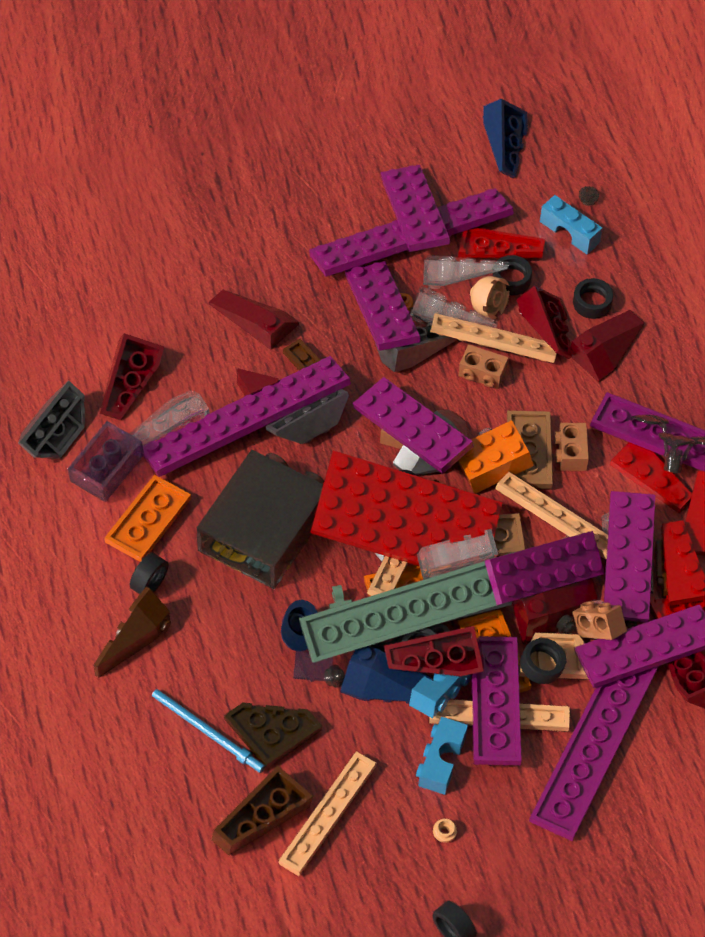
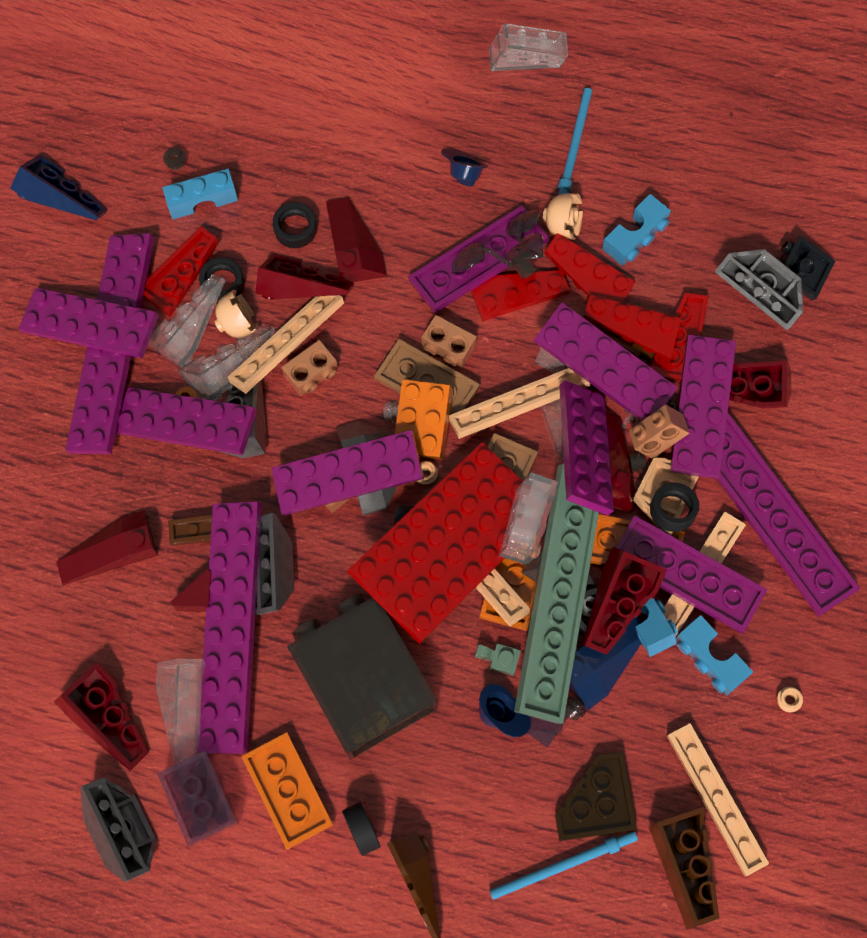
camera: 55 degrees left, 15 degrees up
(456, 480) = (428, 466): none -> light nougat plate

